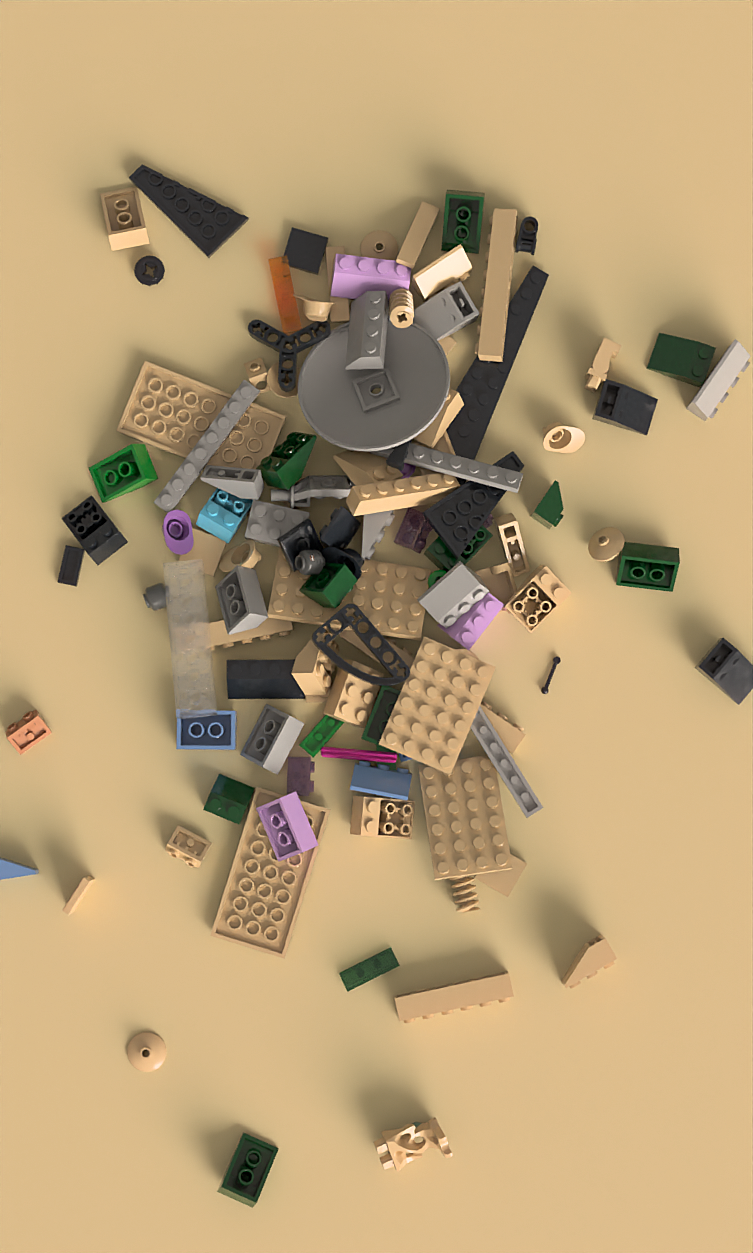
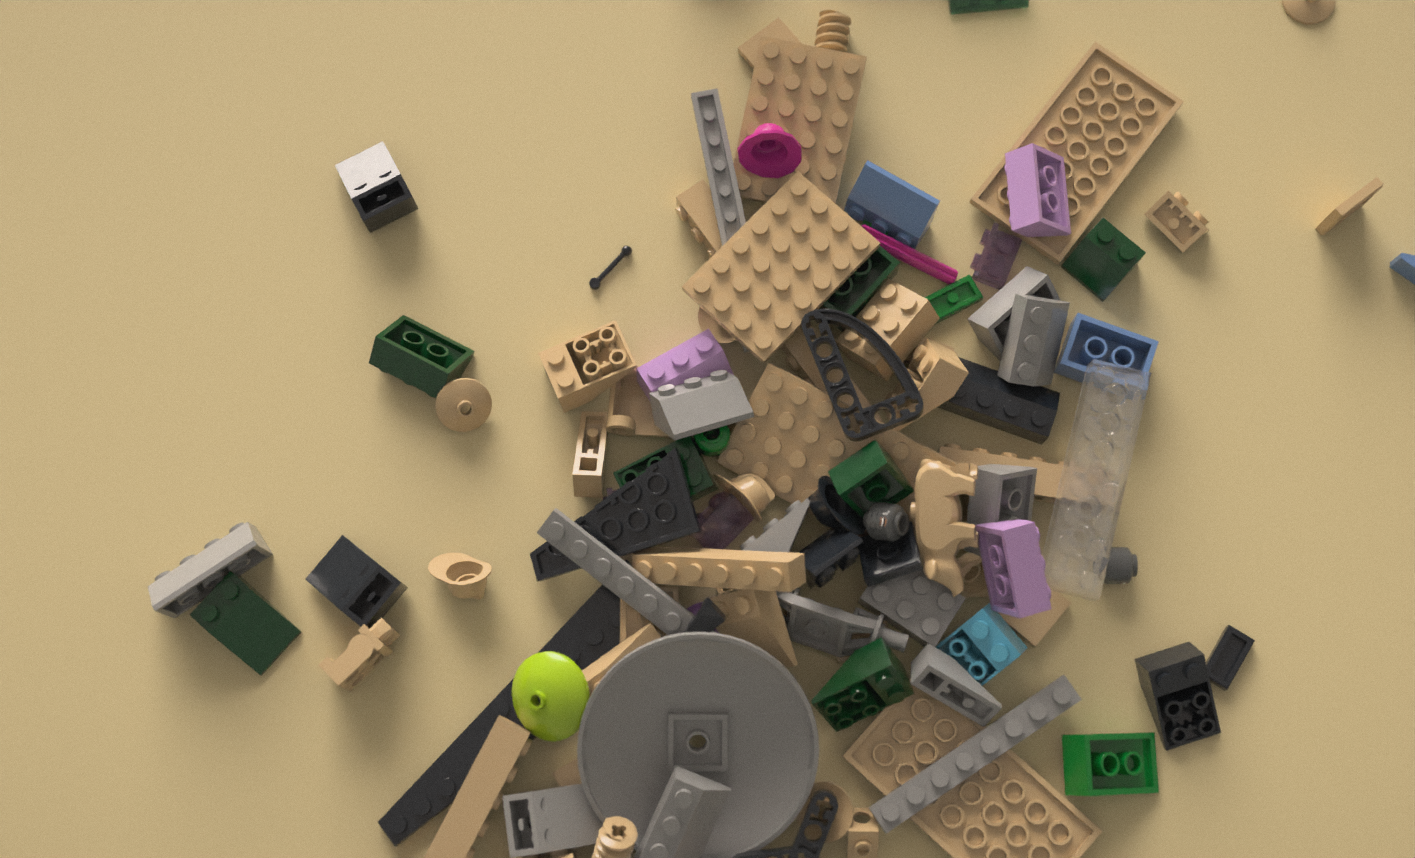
camera: 155 degrees left, 10 degrees down
(27, 731) = (1358, 447): nougat bracket -> none
(178, 532) = (1058, 642): medium lavender piece -> none
(221, 561) = (1014, 567): none -> lavender slope
(256, 720) = (1033, 340): none -> light grey slope
(278, 575) = (939, 522): none -> tan animal
(382, 817) = (911, 159): tan slope -> none
(401, 556) = (750, 492): none -> tan piece
(474, 785) = (770, 152): none -> dark pink hat
(475, 381) = (561, 693): none -> lime dish
(550, 507) = (518, 481): dark green slope -> none

